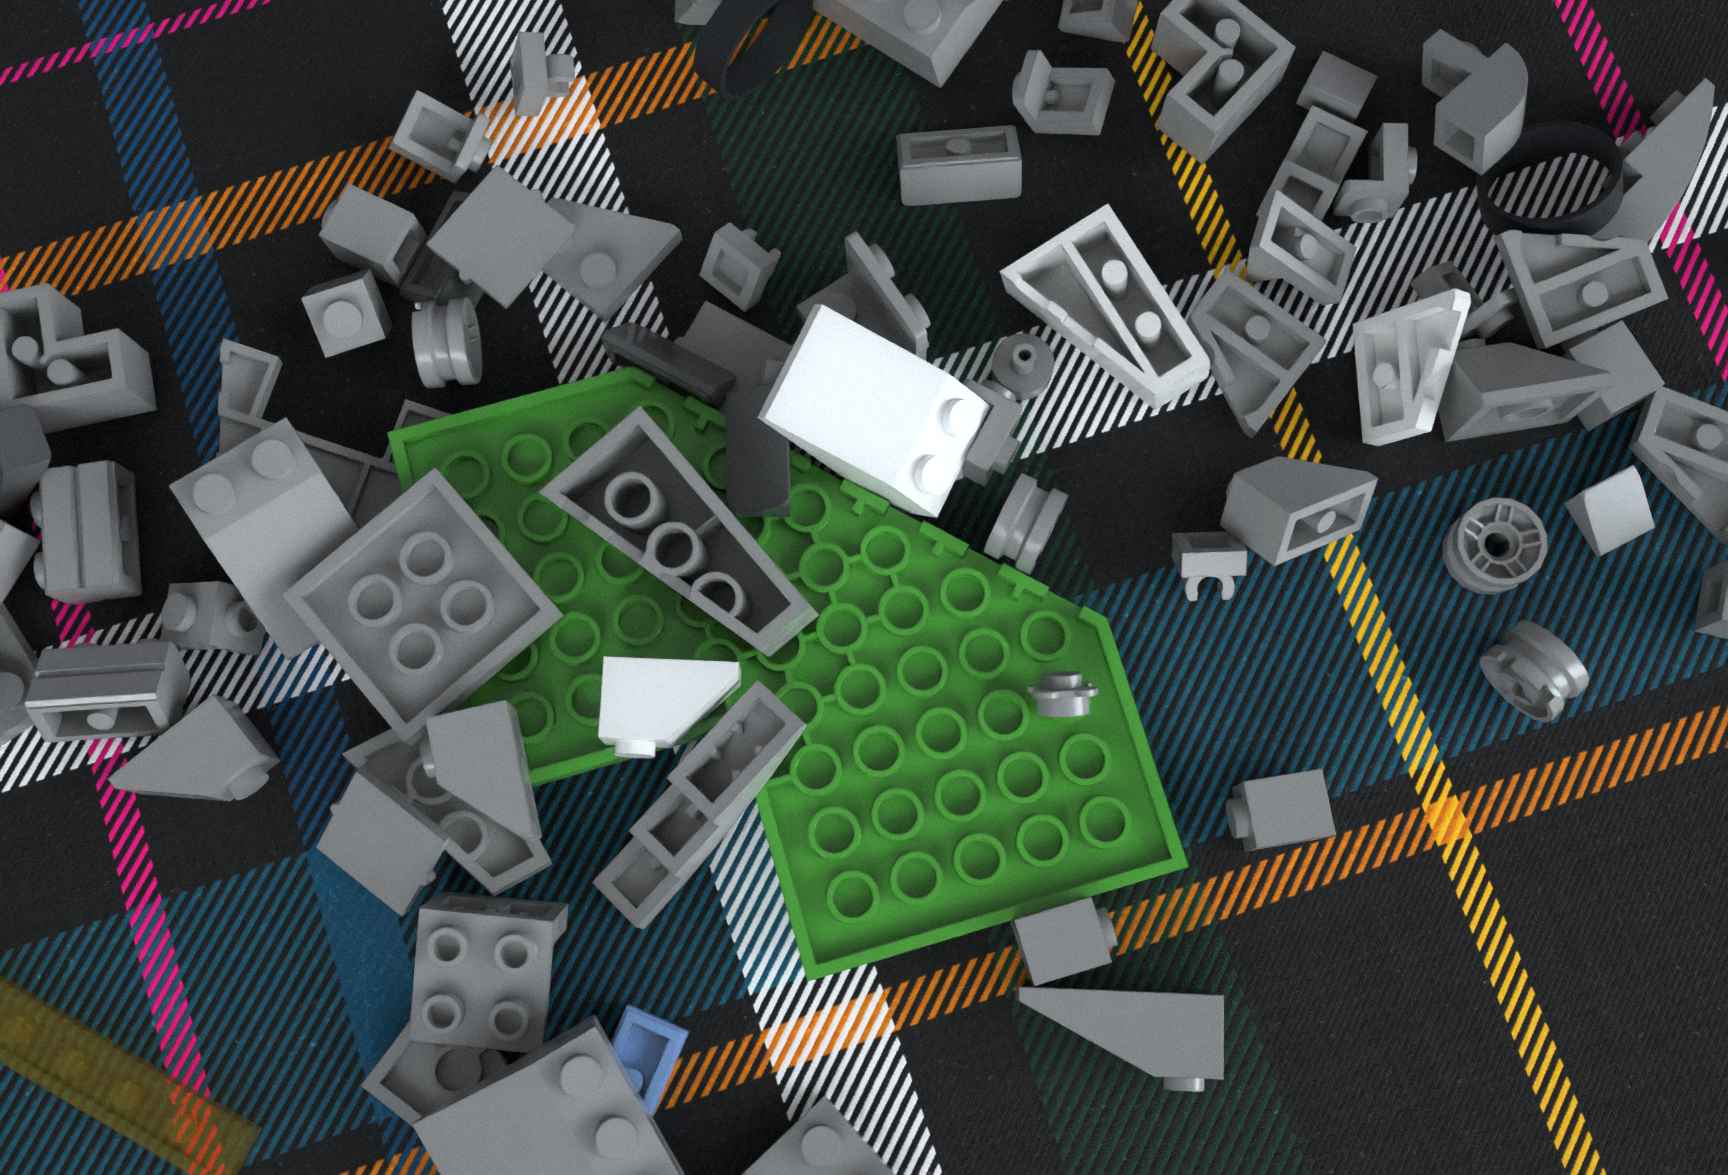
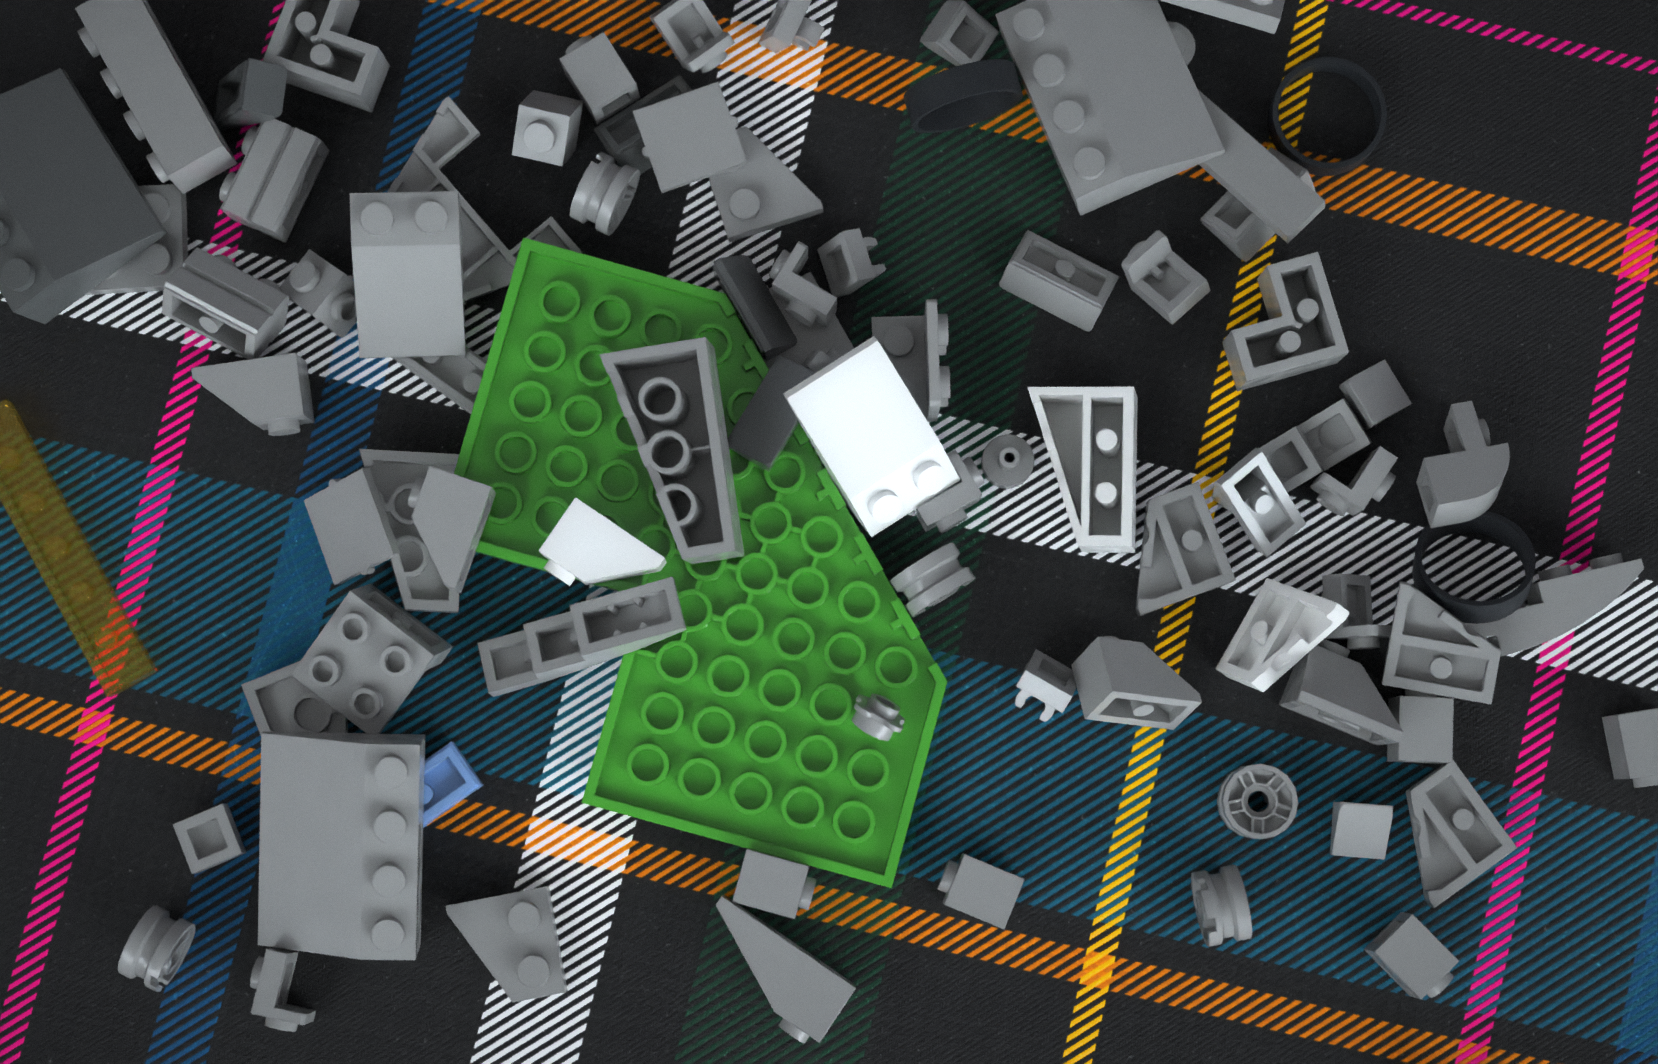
camera: 30 degrees right, 5 degrees up
(422, 606) = (474, 381): light grey plate -> none
(710, 324) = (803, 299): none -> light grey bracket

